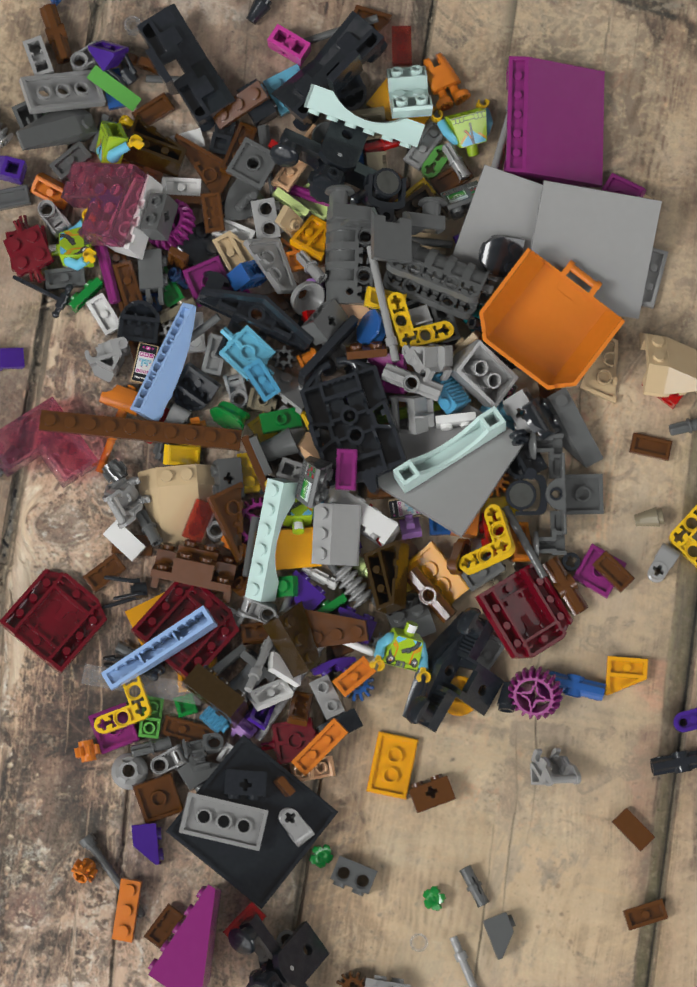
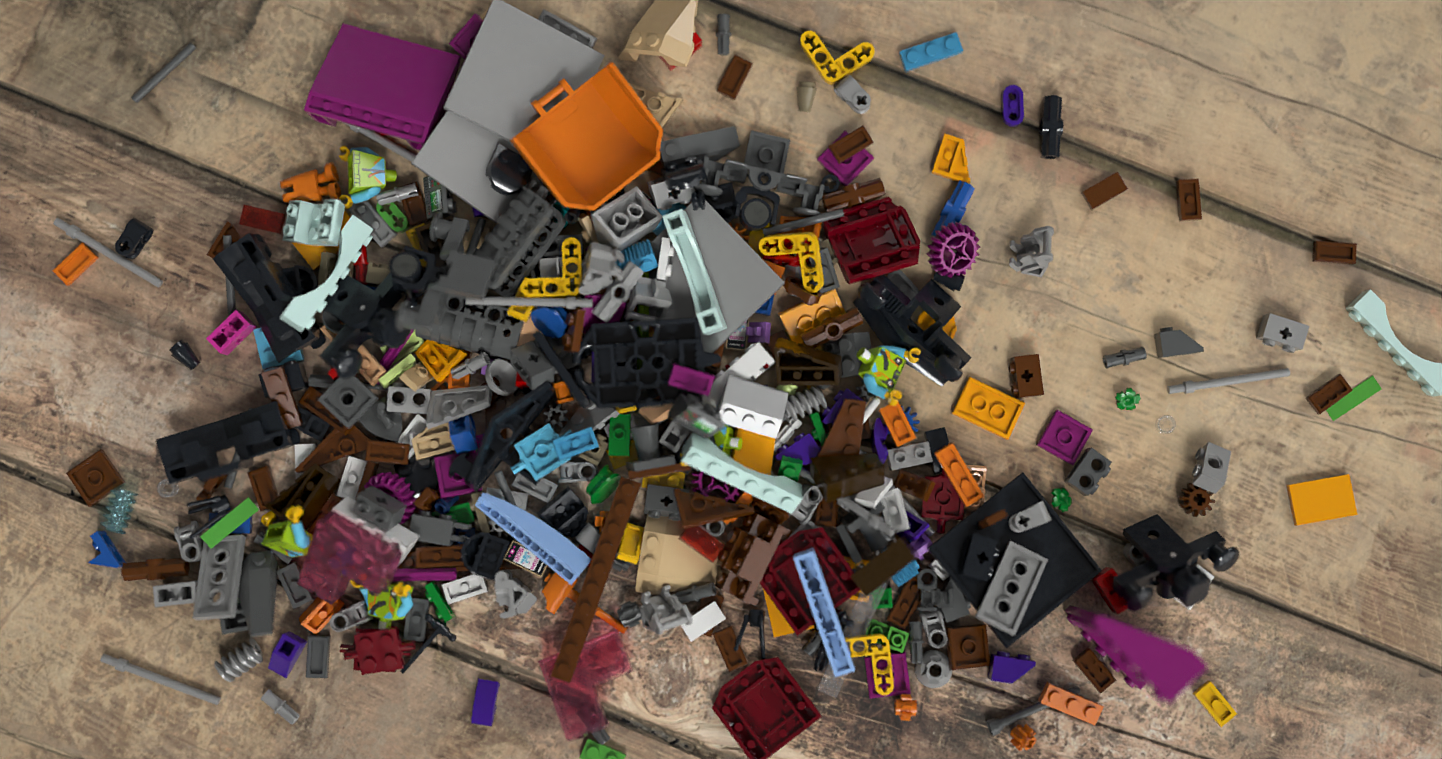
camera: 80 degrees left, 5 degrees up
(107, 54) = (191, 521): dark purple slope -> none
(250, 545) = (741, 495): dark grey bar -> none
(382, 846) = (1064, 437): none -> magenta tile

